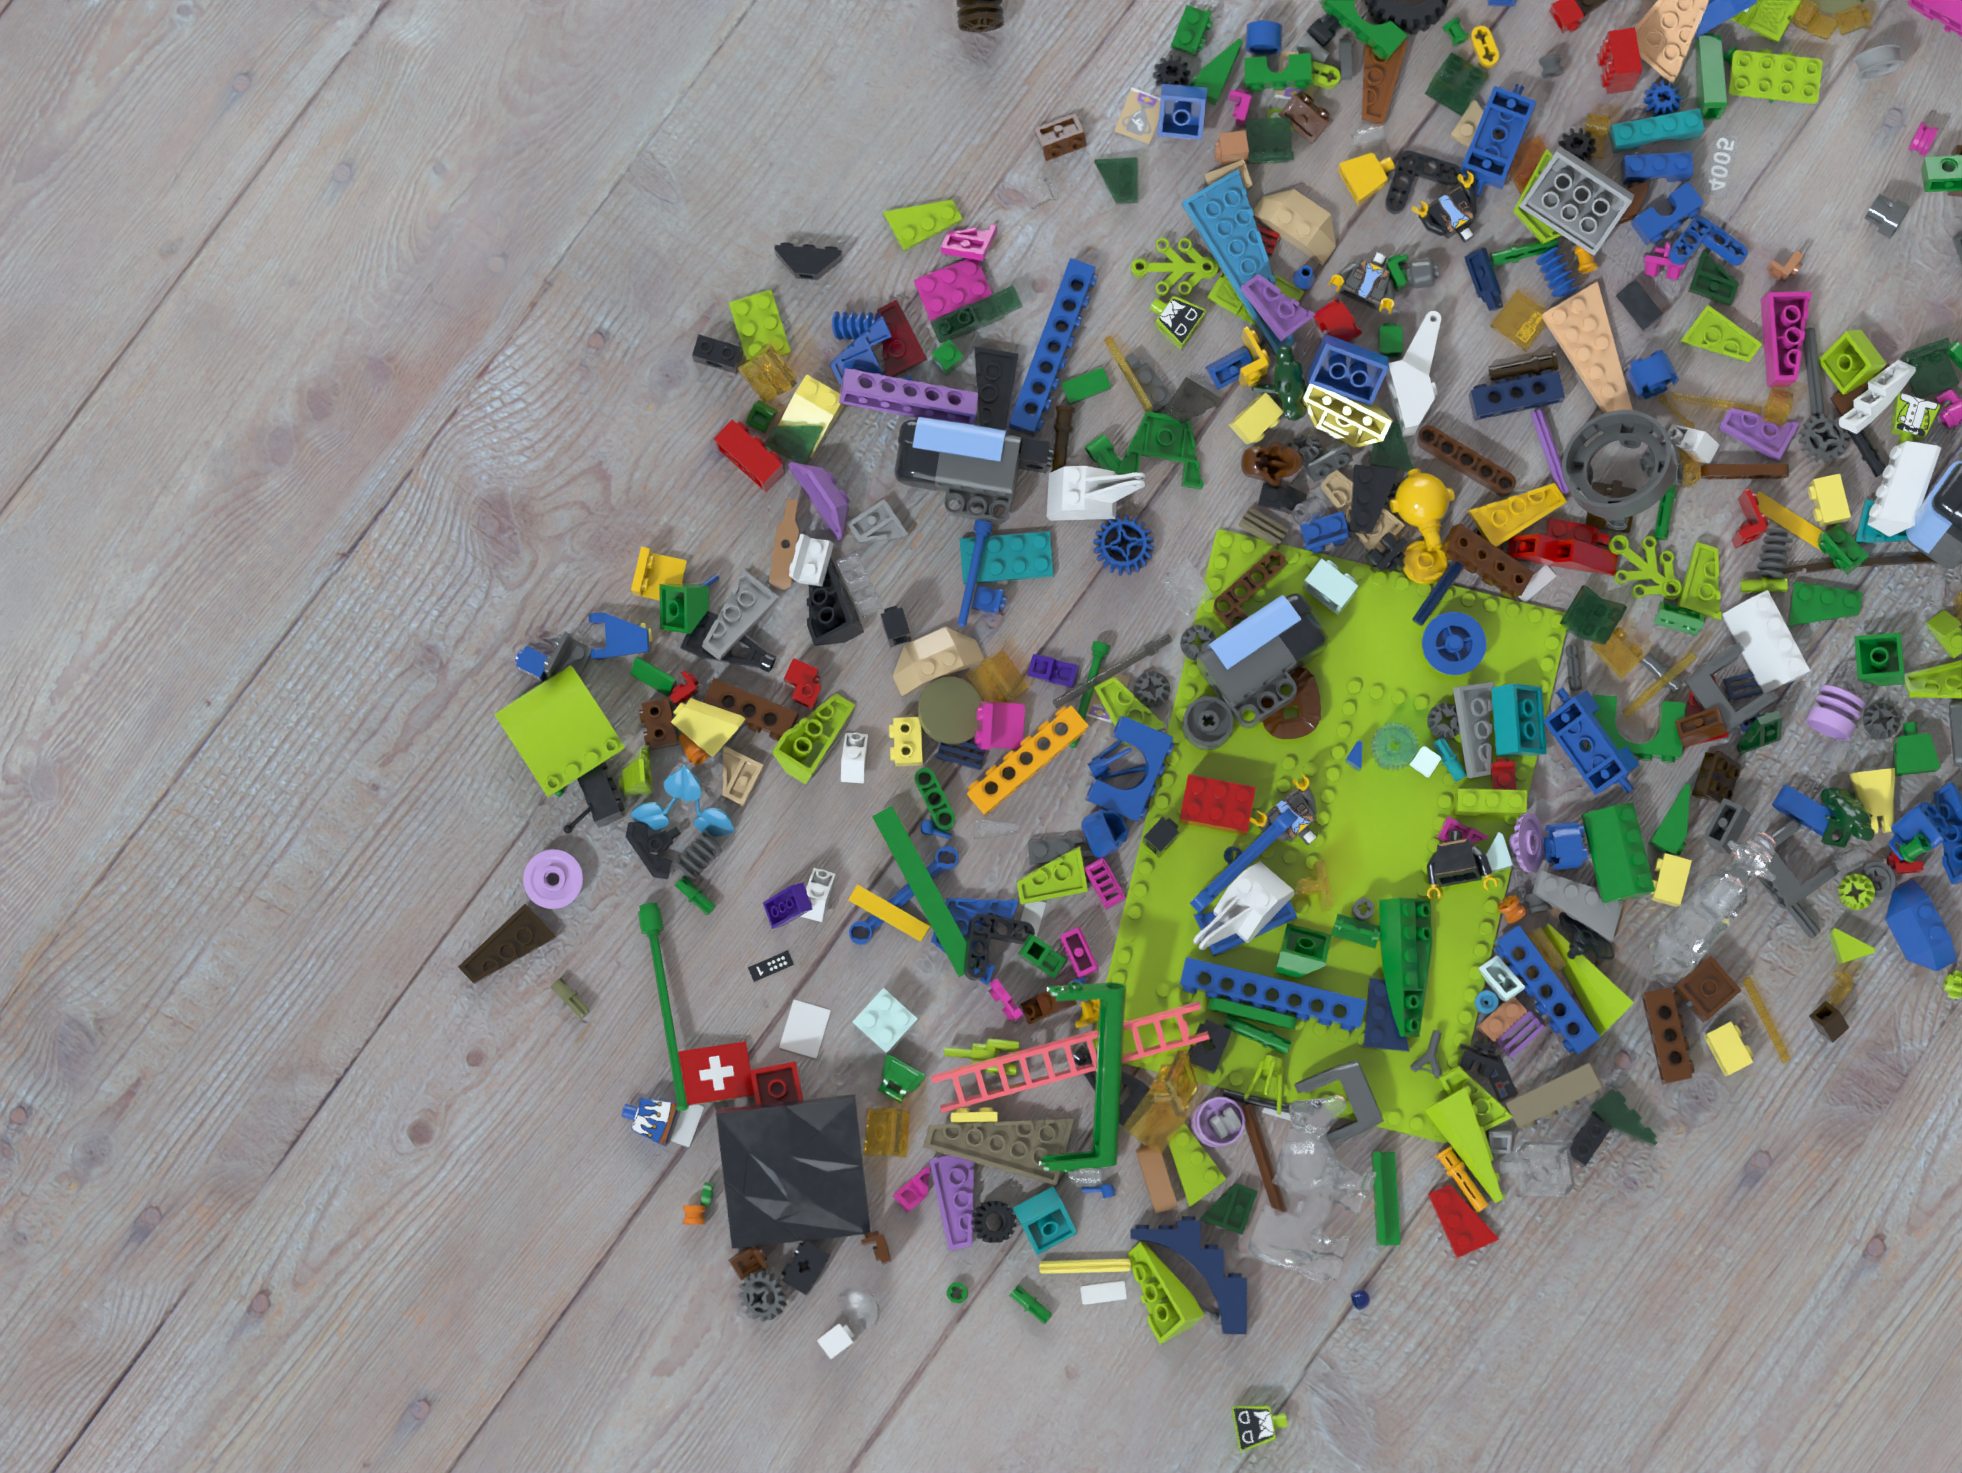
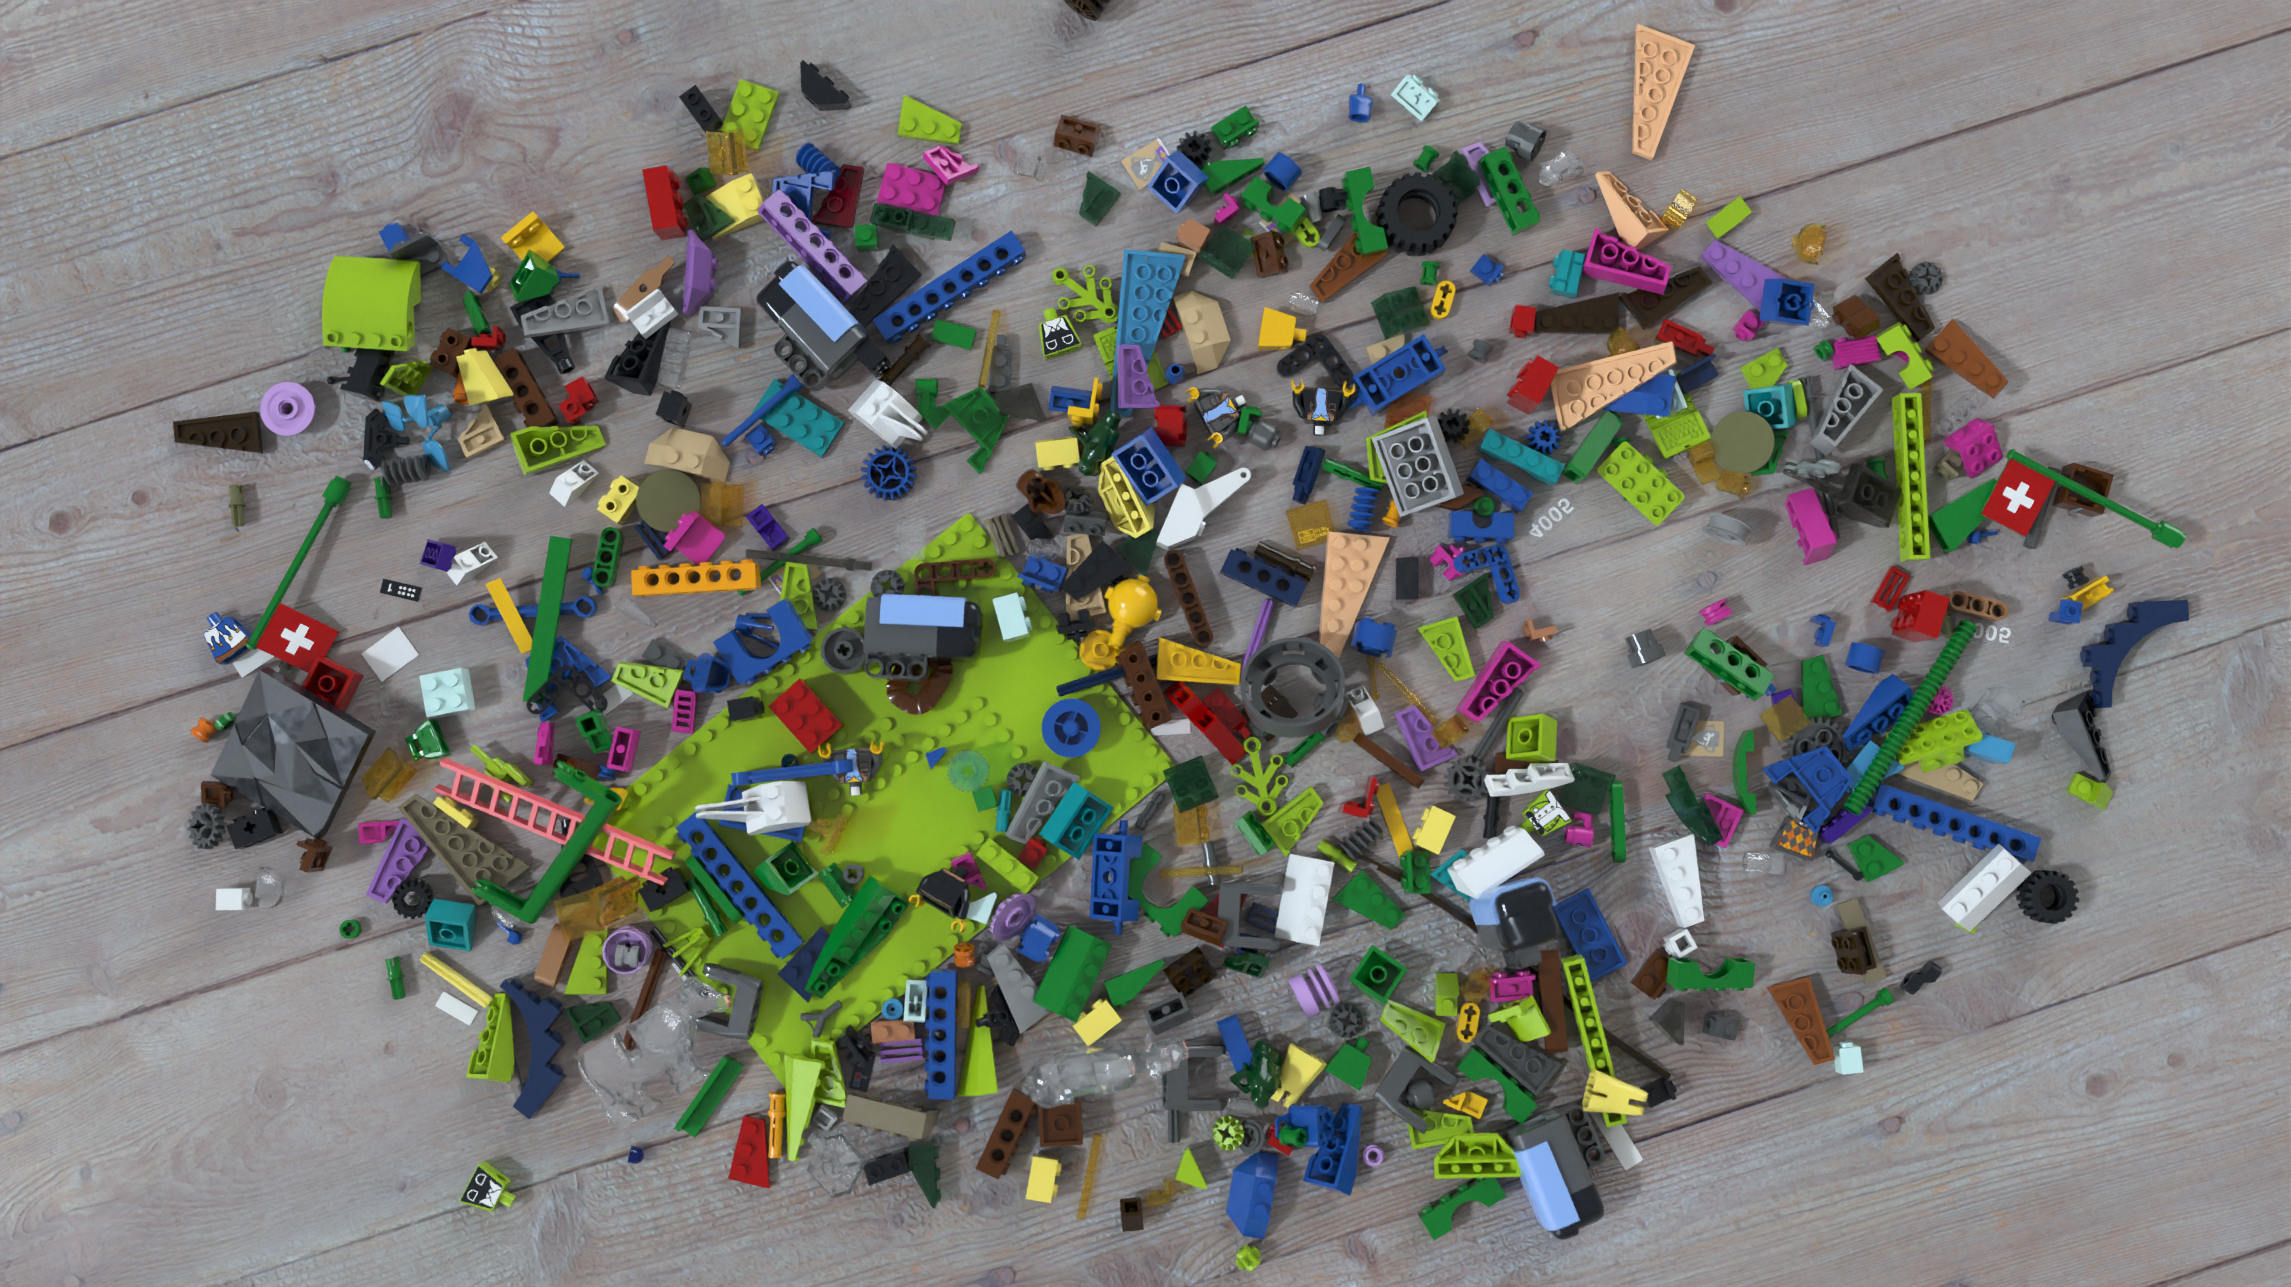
camera: 30 degrees right, 5 degrees up
(1656, 196) = (1483, 506): none -> green tile

